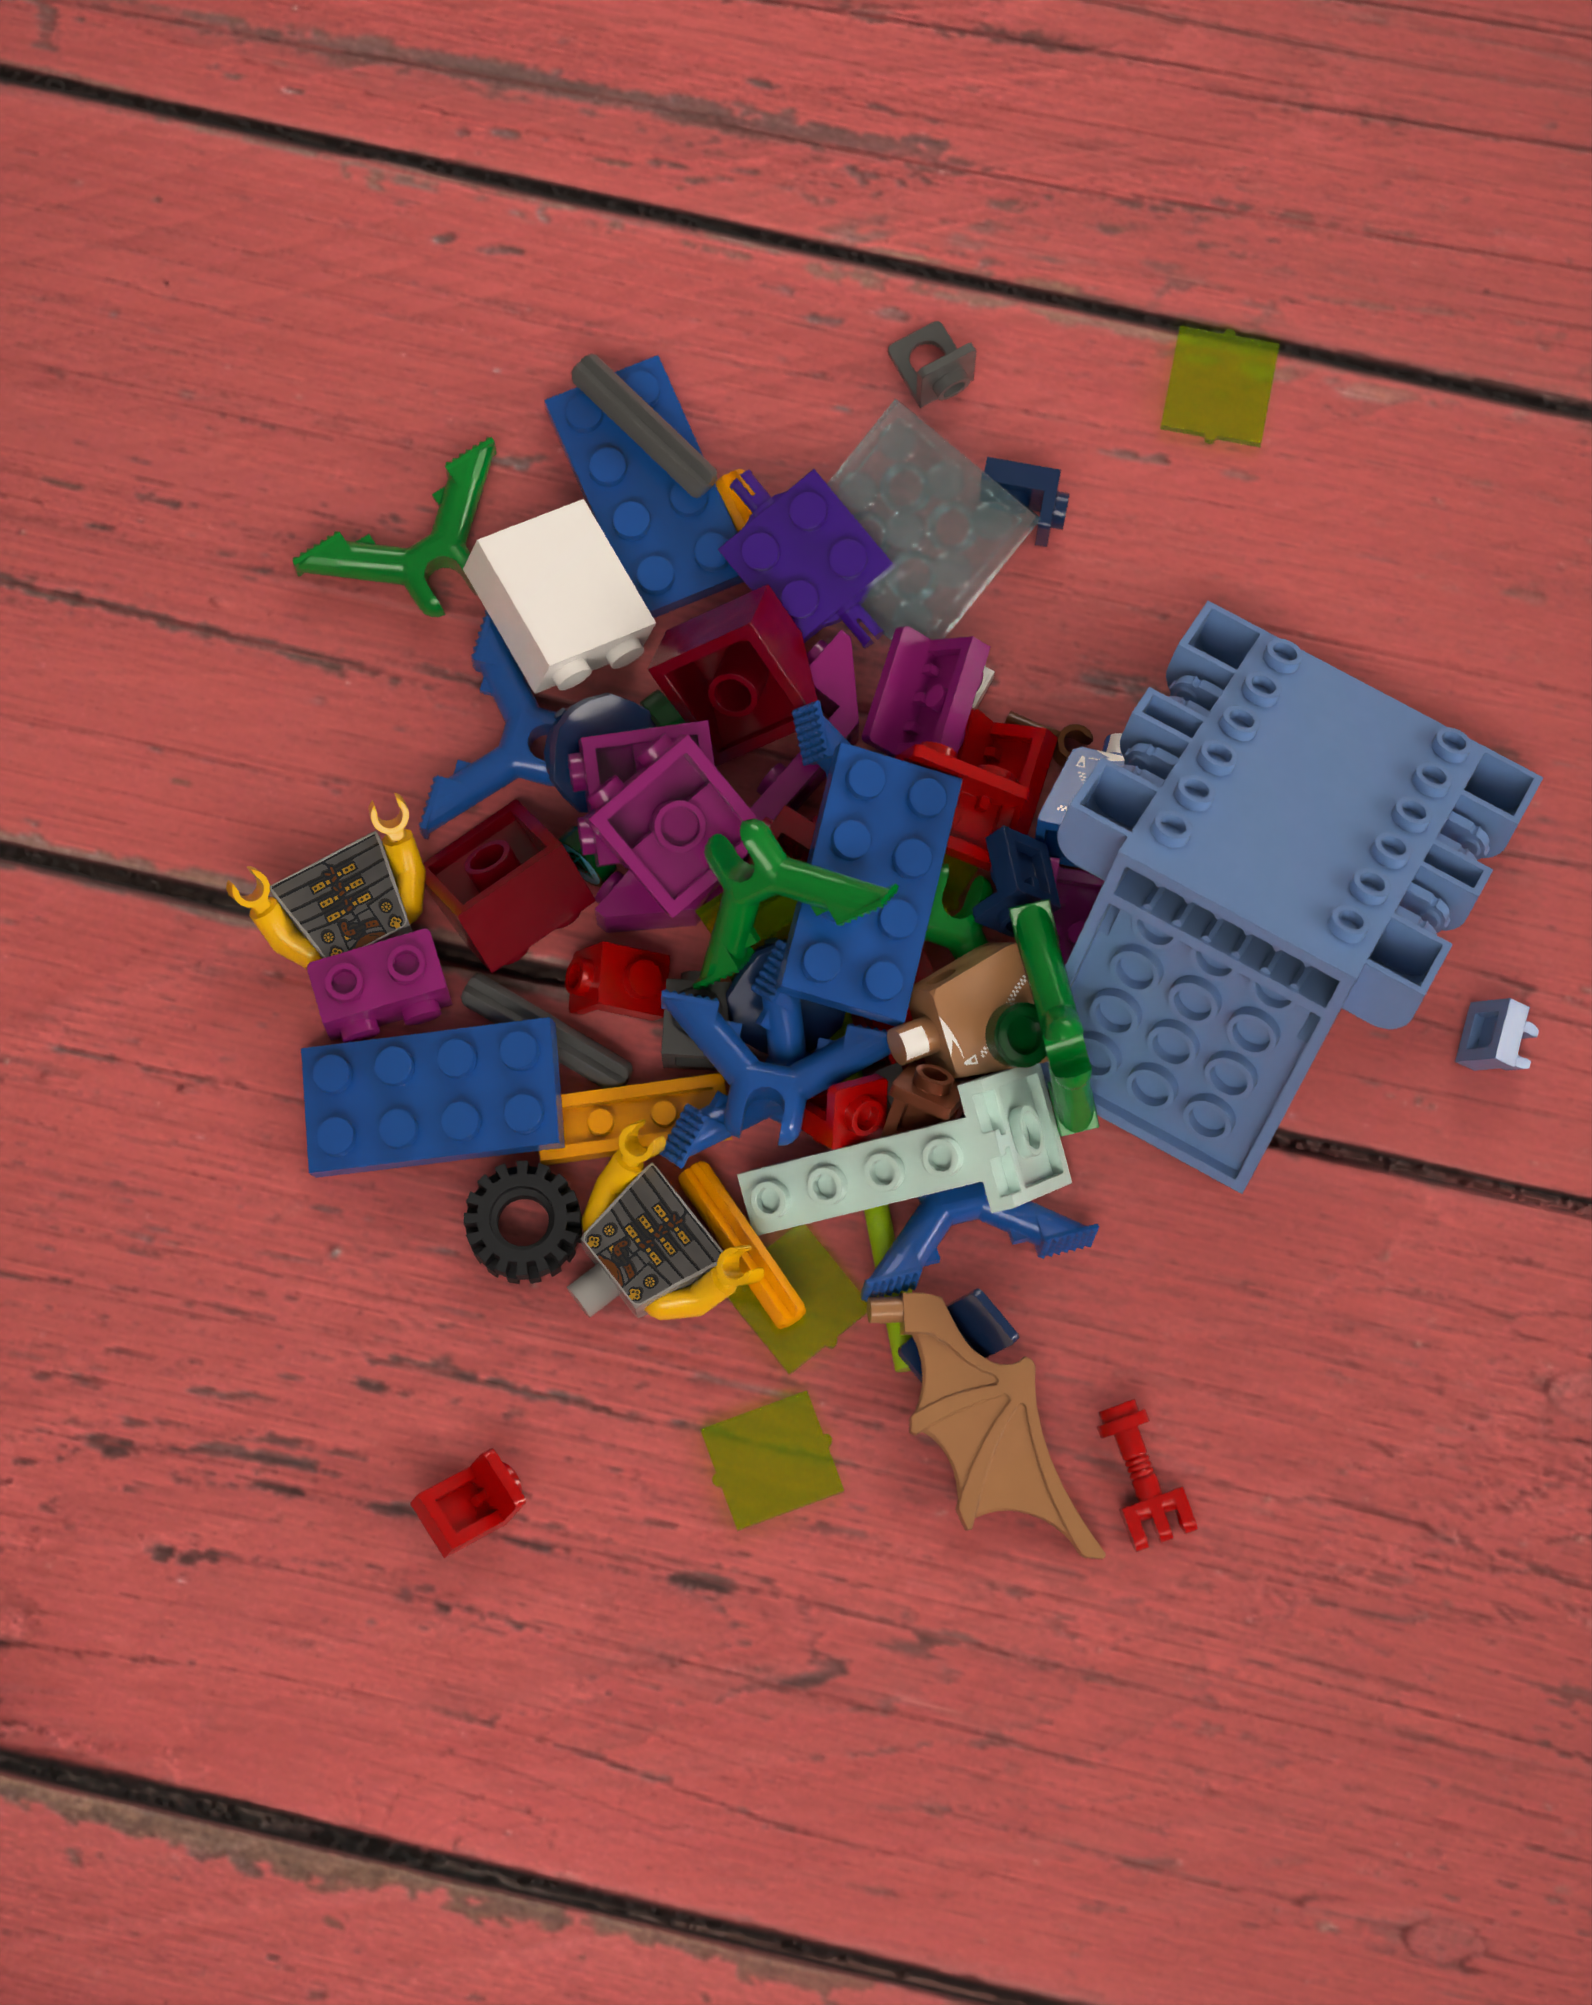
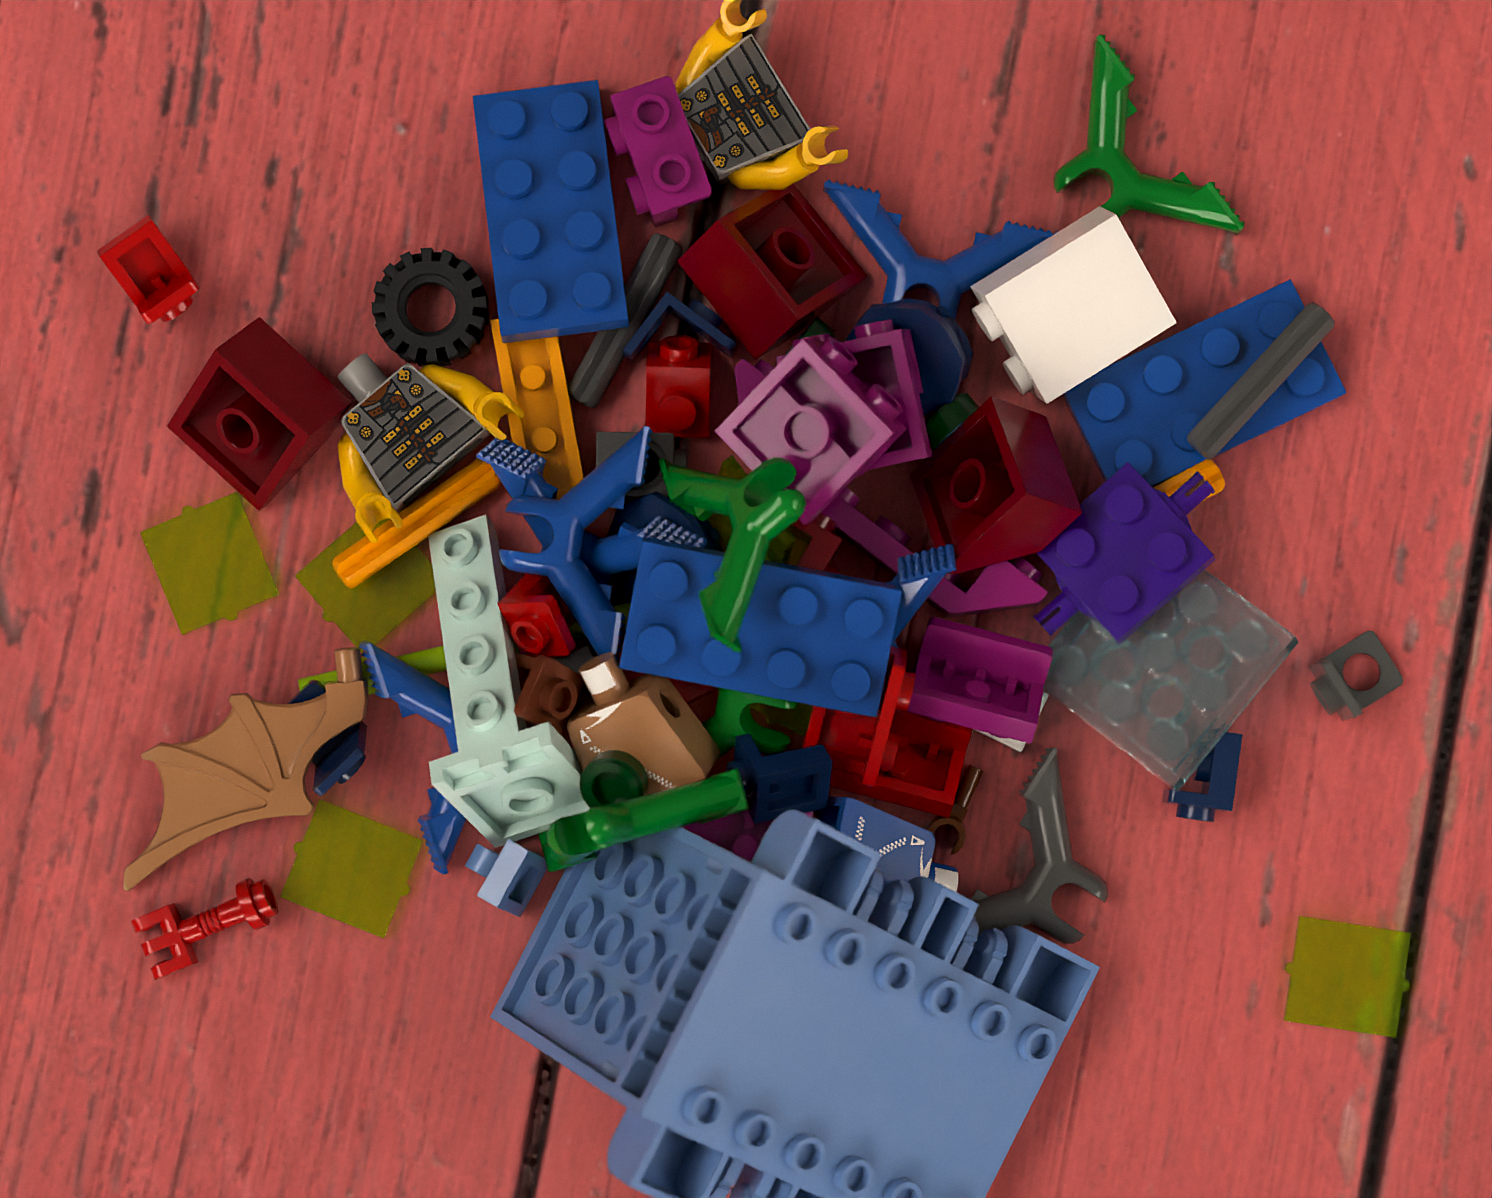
camera: 90 degrees right, 10 degrees up
(547, 962) = (695, 316): none -> dark blue bracket
(622, 1398) = (258, 412): none -> dark red slope
(1089, 1327) = (352, 868): none -> clear neon green piece
(1095, 647) = (1052, 859): none -> dark grey piece
(1101, 1165) = (508, 875): none -> medium blue tile

